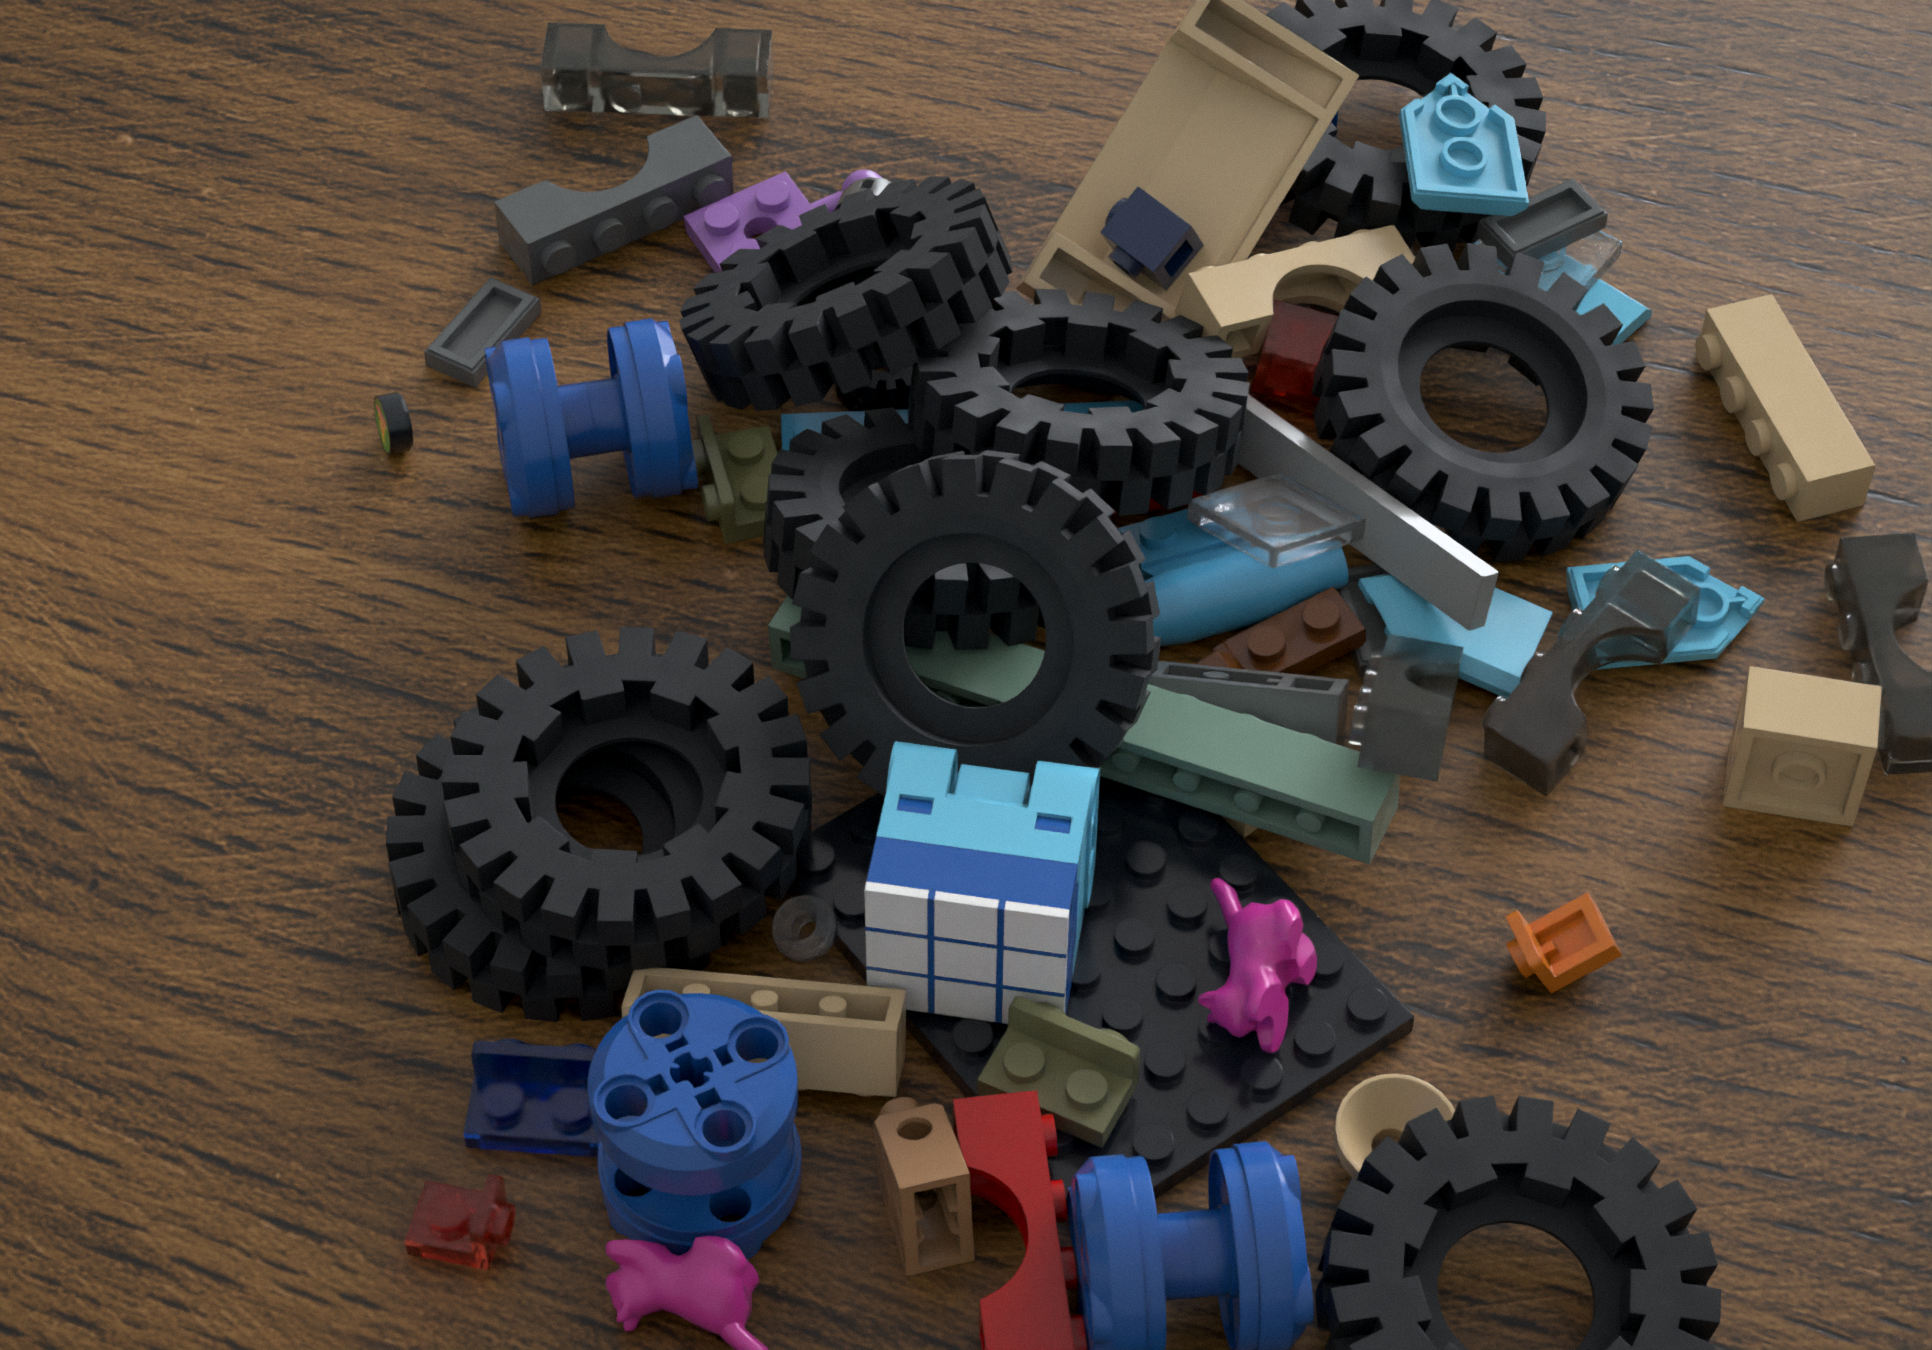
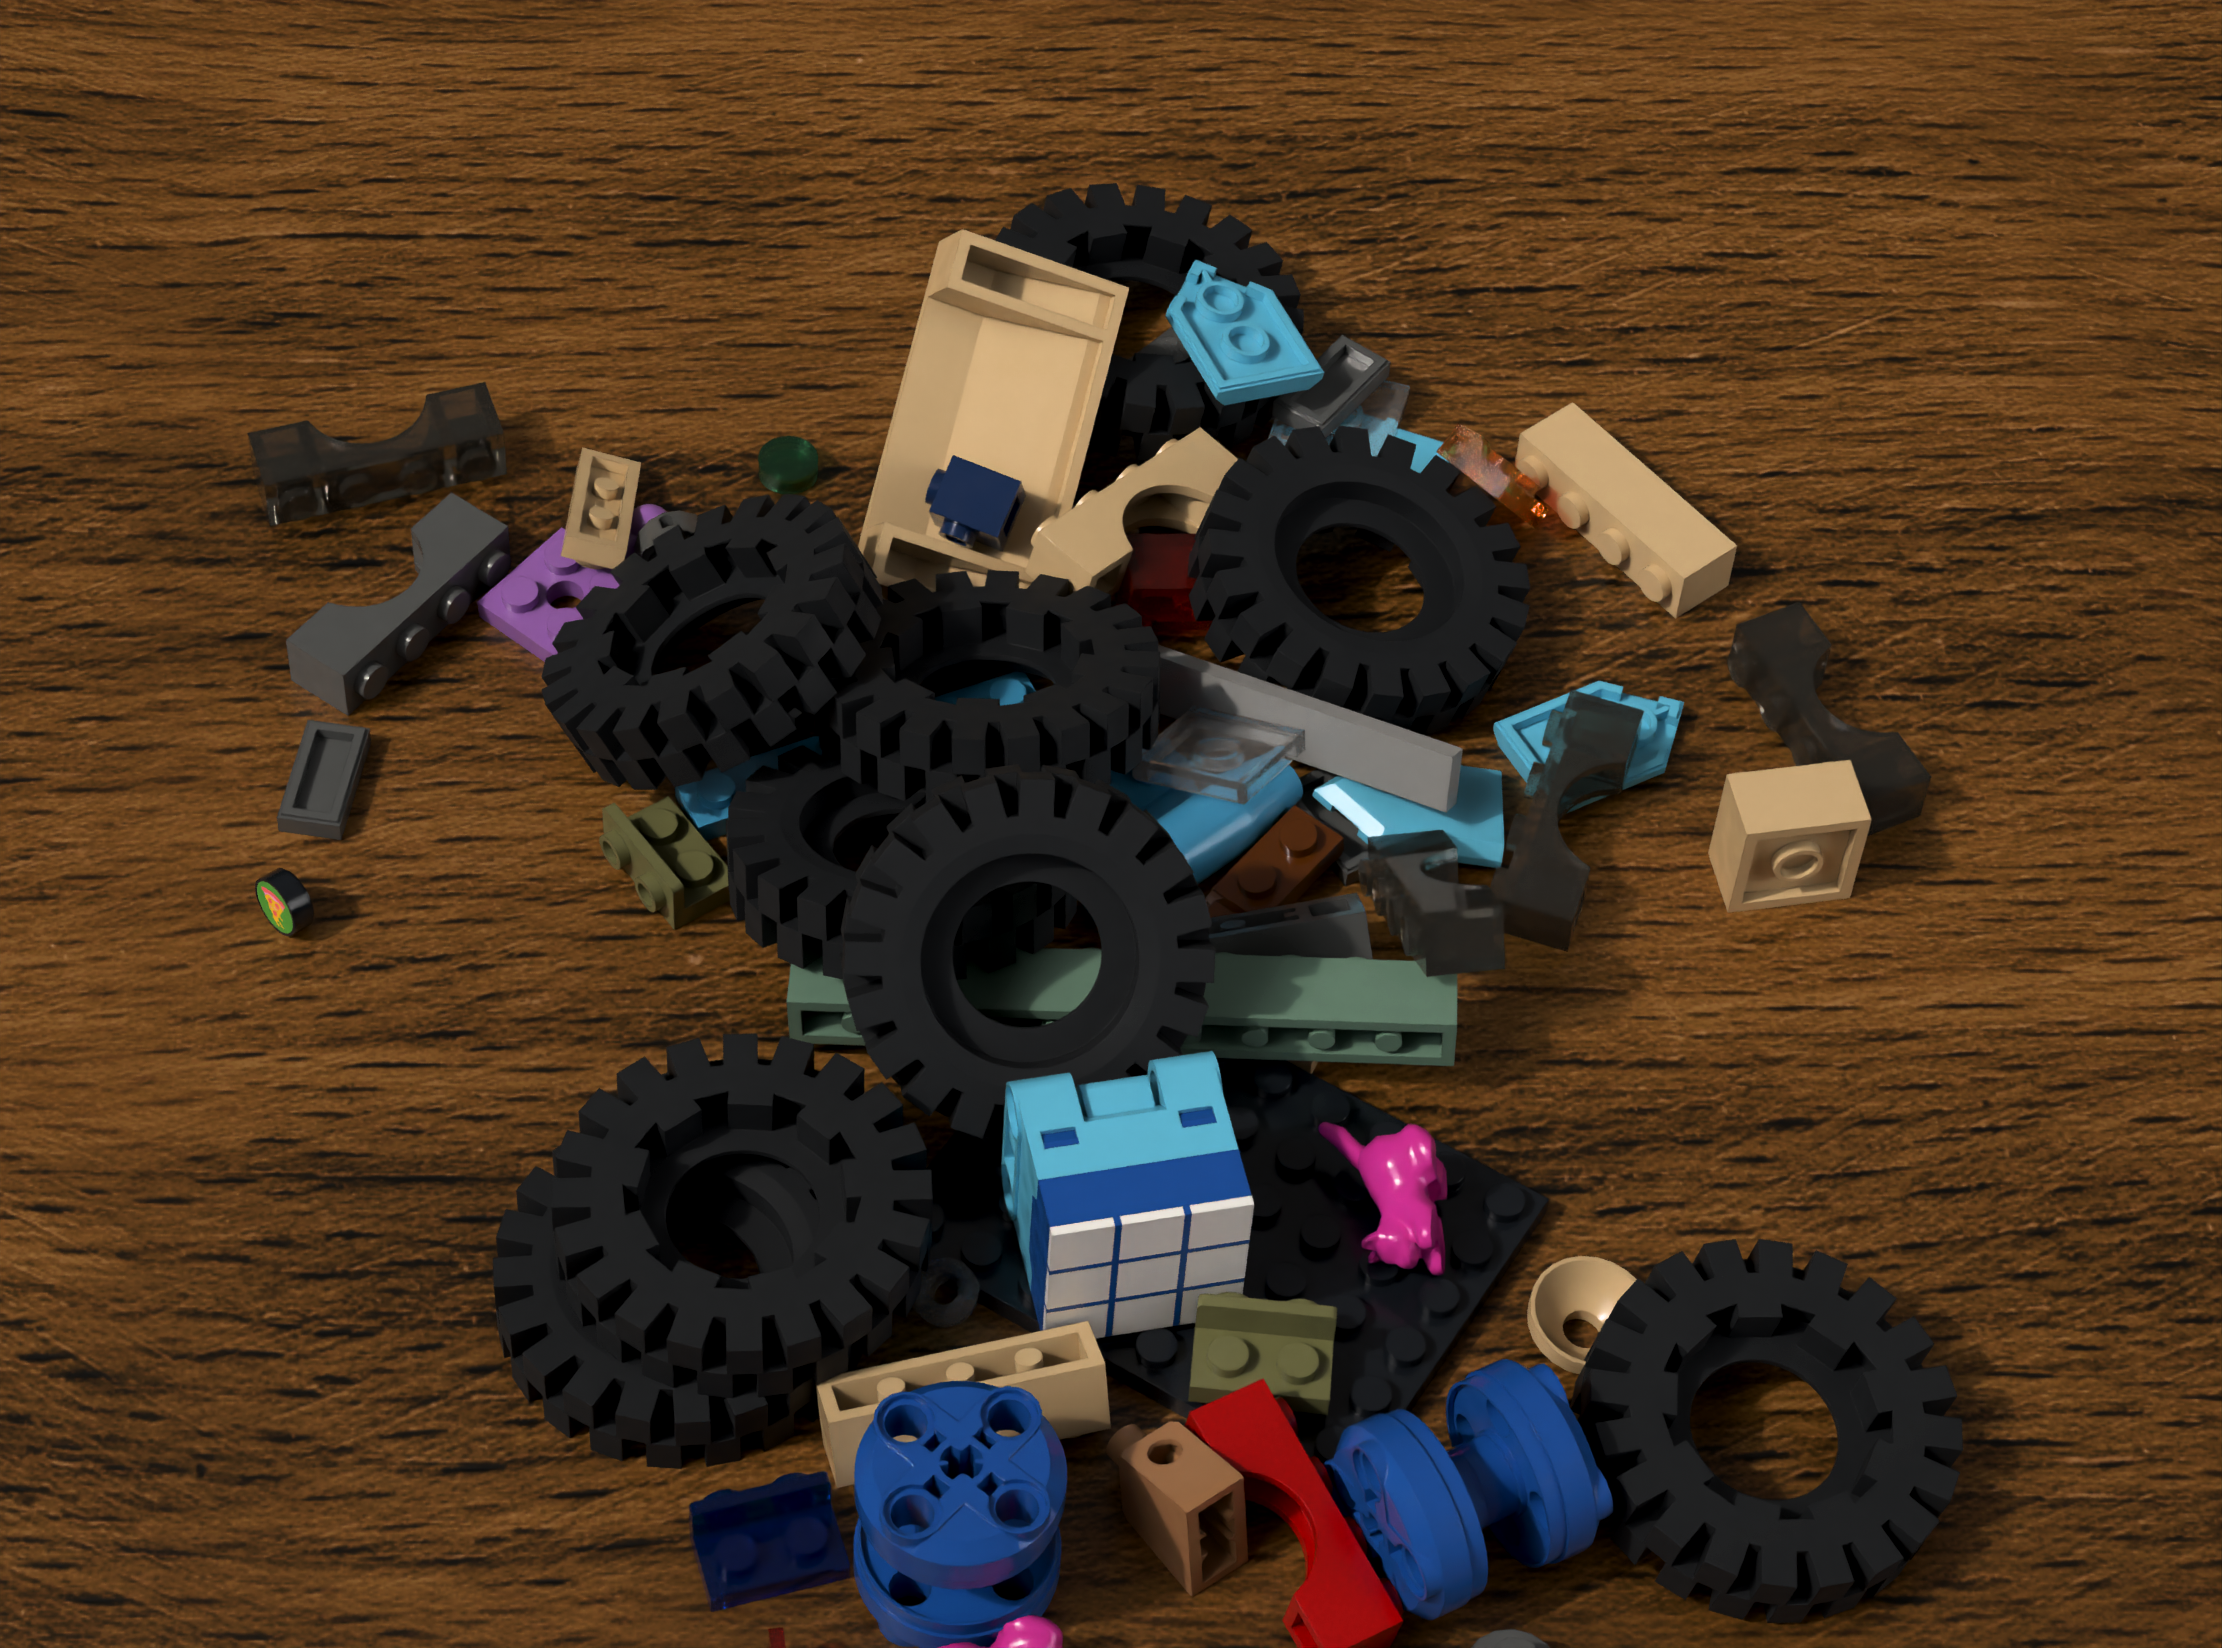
camera: 25 degrees left, 0 degrees up
(631, 412) = (463, 861): blue piece -> none
(822, 162) = (601, 510): none -> tan plate
(1017, 171) = (788, 465): none -> clear green tile
(1562, 943) = (1652, 1087): orange bracket -> none
(1662, 344) = (1493, 473): none -> clear orange hinge

